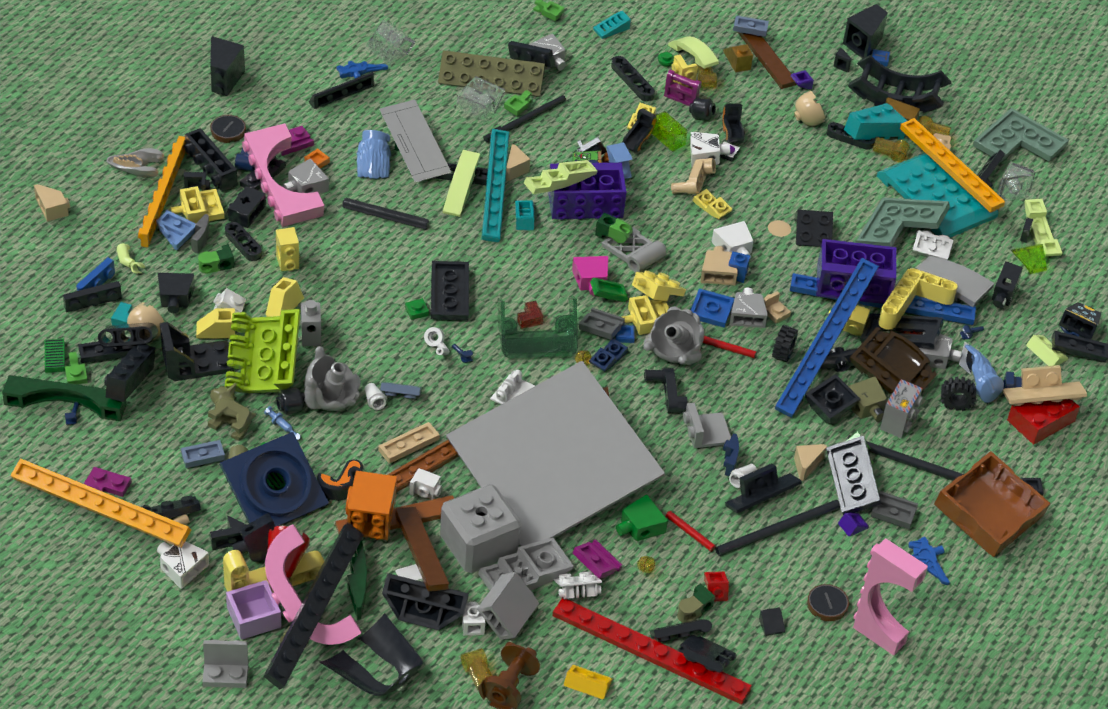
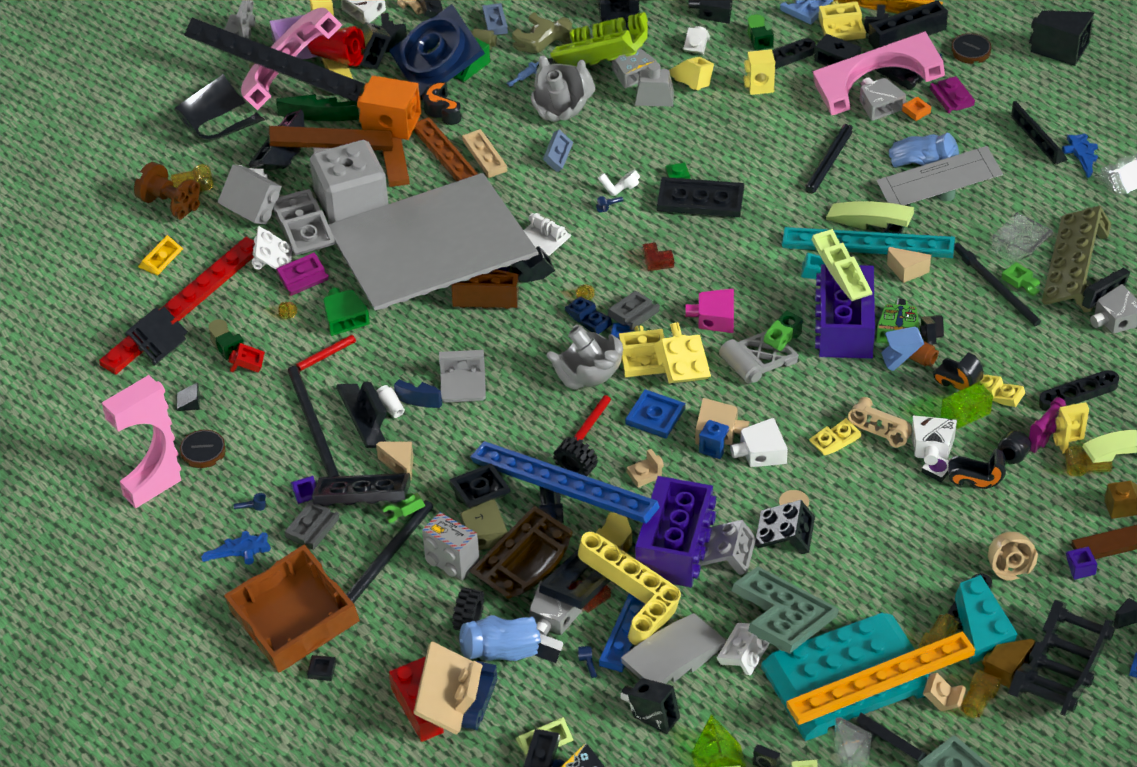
camera: 105 degrees right, 0 degrees up
(202, 232) = (802, 23): flat silver slope -> none
(216, 324) = (660, 30): light yellow slope -> none
(375, 397) = (545, 132): white cone -> none
(425, 484) = (424, 159): white brick -> none
(546, 343) = (616, 247): clear green windscreen -> none
(608, 289) = (684, 313): green tile -> none
(666, 59) = (1120, 425): green plate -> none
(674, 403) = (511, 355): black beam -> none
(681, 629) = (195, 322): black plate -> none
(748, 309) = (641, 436): light grey torso -> none

